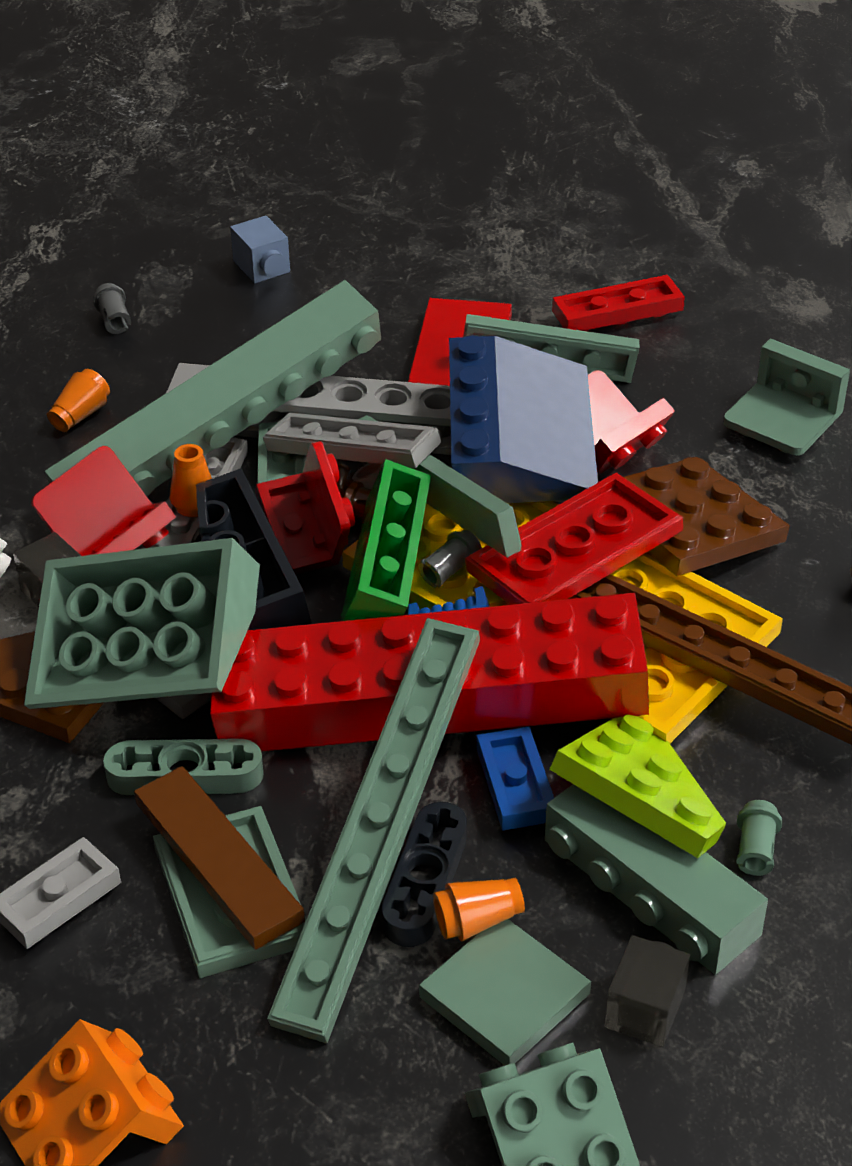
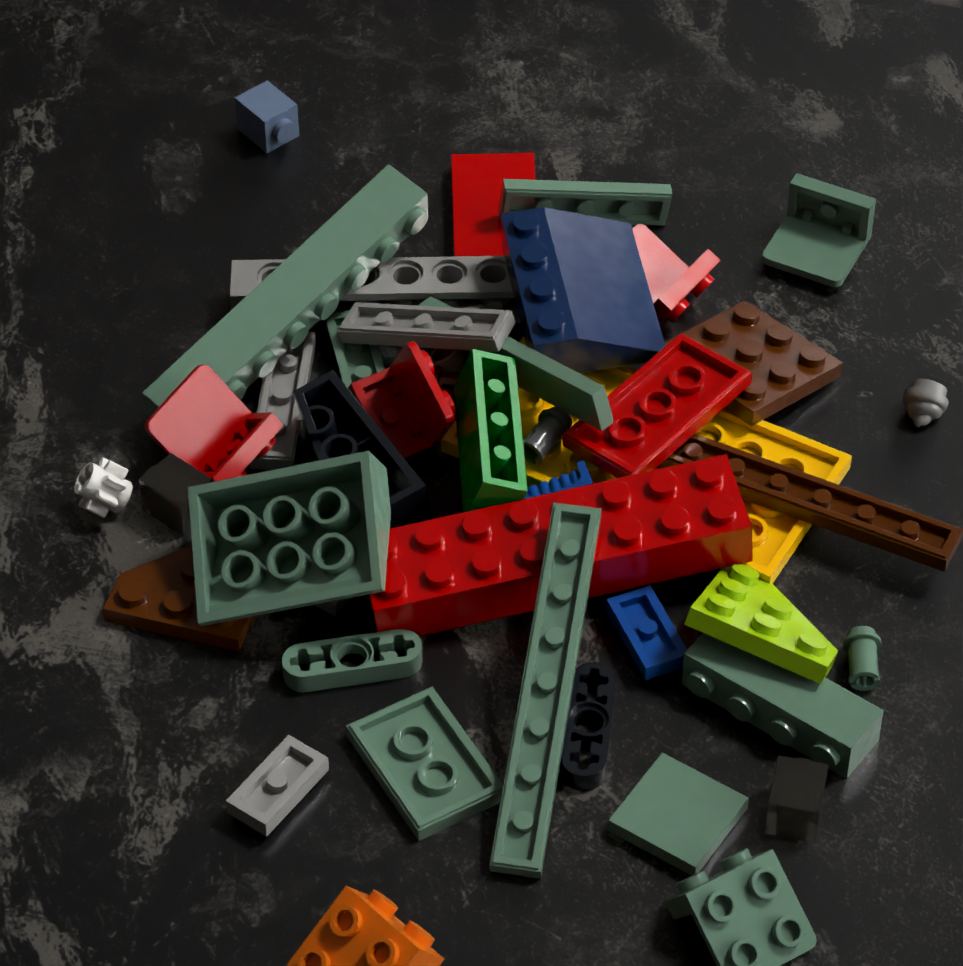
camera: 10 degrees left, 5 degrees up
(79, 399) = (138, 307): orange cone -> none
(110, 301) = (132, 193): dark grey pin -> none
(188, 470) = (281, 381): orange cone -> none
(220, 857) = (411, 735): reddish brown tile -> none
(476, 906) = (643, 748): orange cone -> none
(618, 303) = (637, 141): red plate -> none

